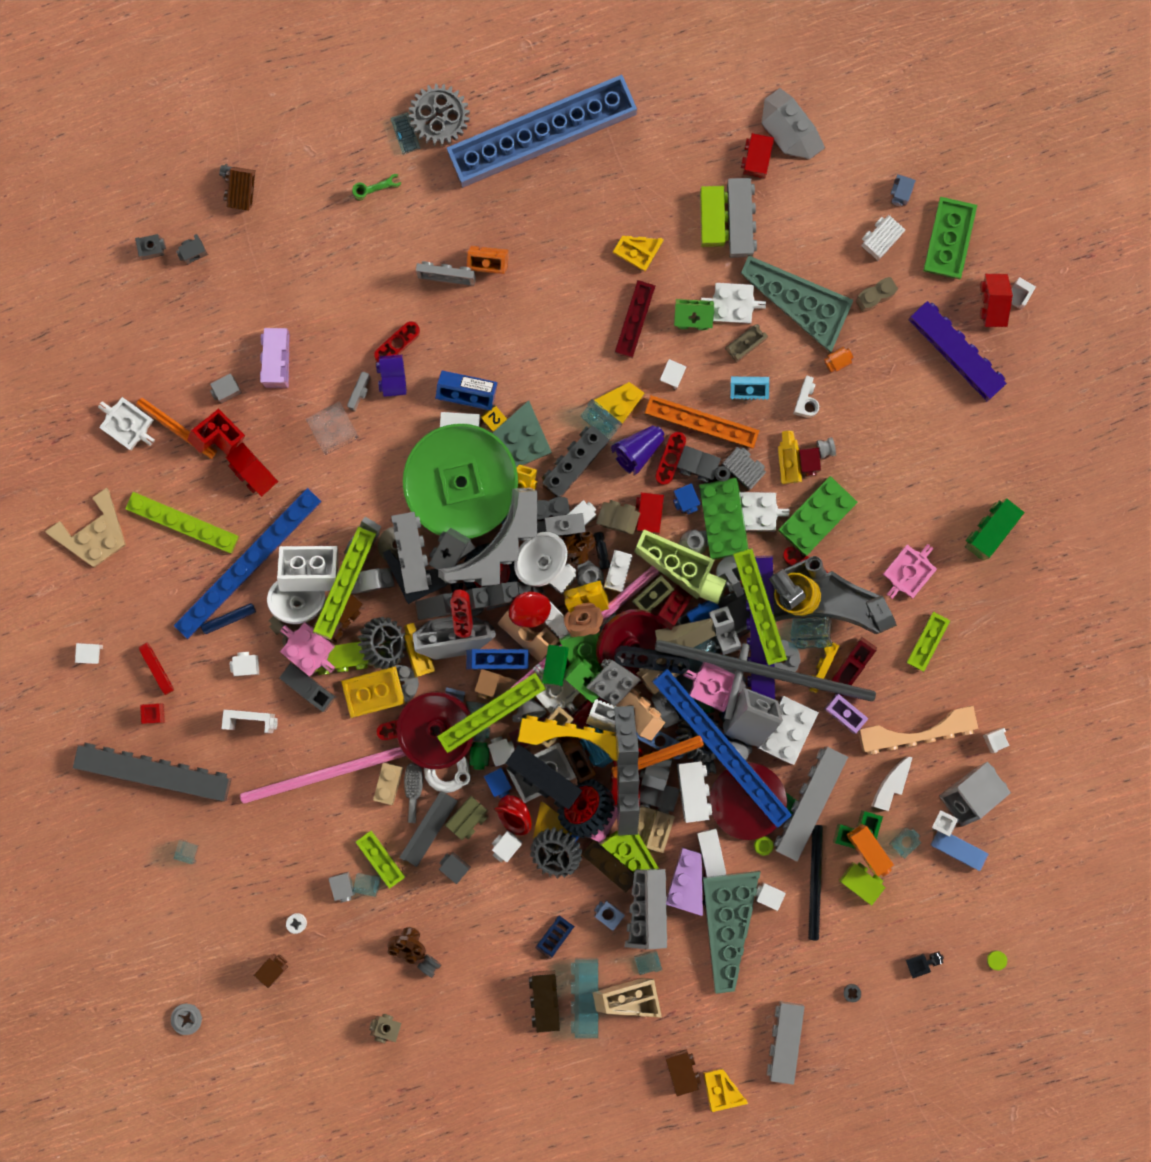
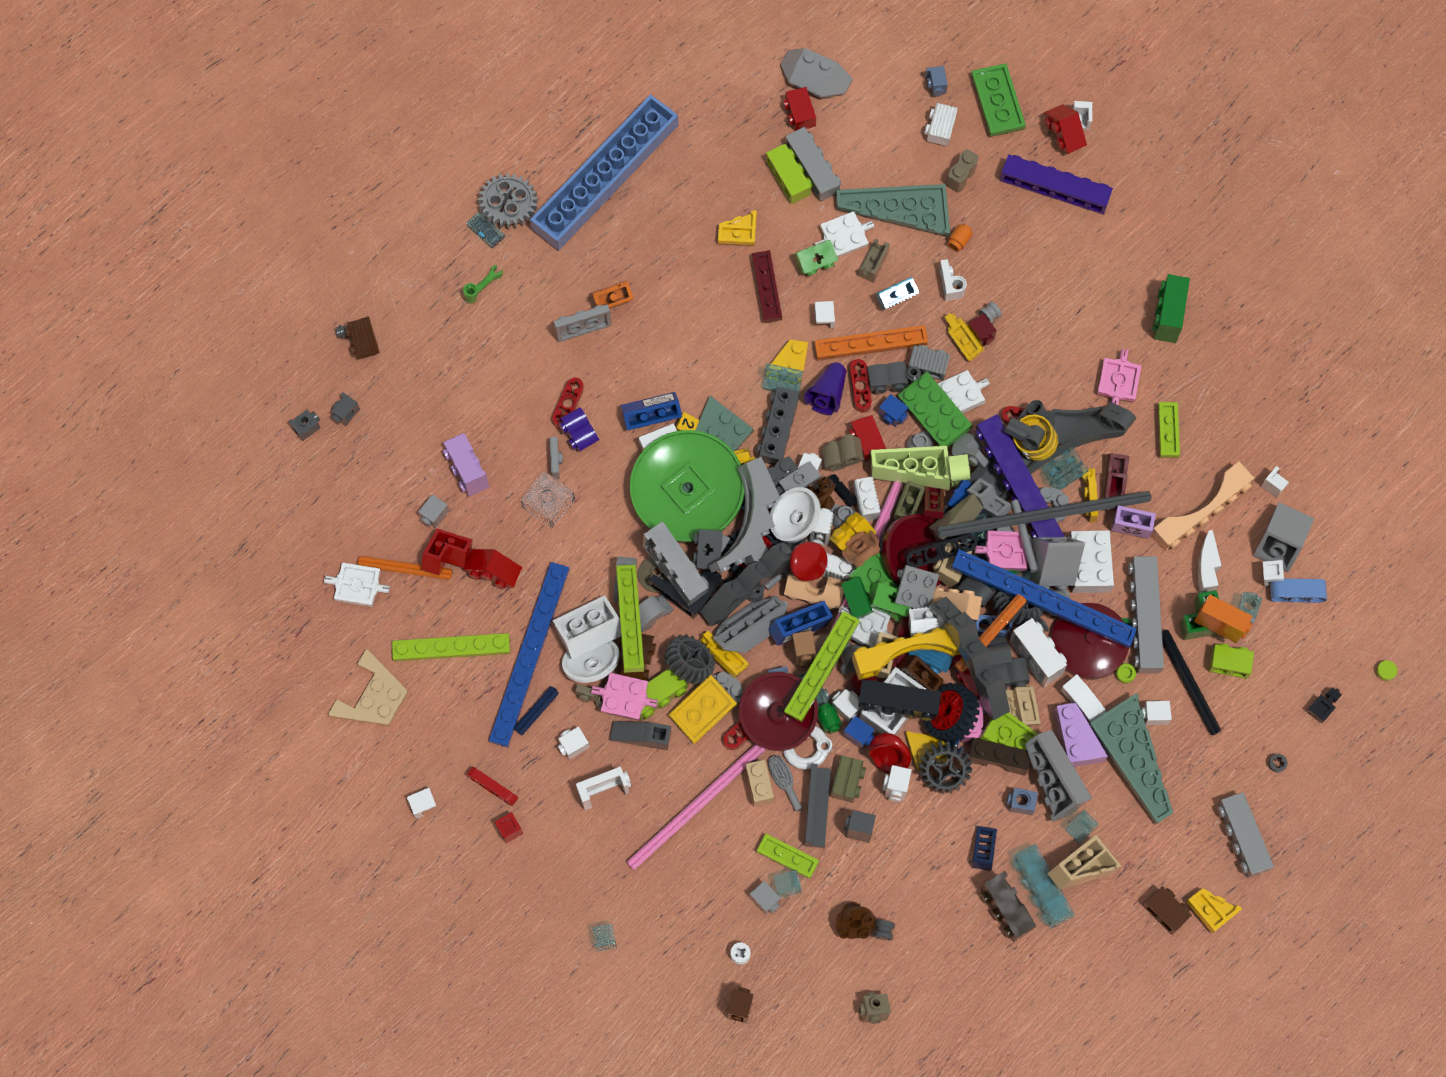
camera: 25 degrees left, 15 degrees down
(152, 773) = (535, 882): dark grey brick -> none
(464, 607) = (750, 585): red beam -> none
(760, 606) = (1009, 459): lime plate -> none
(817, 516) = (1014, 372): bright green plate -> none

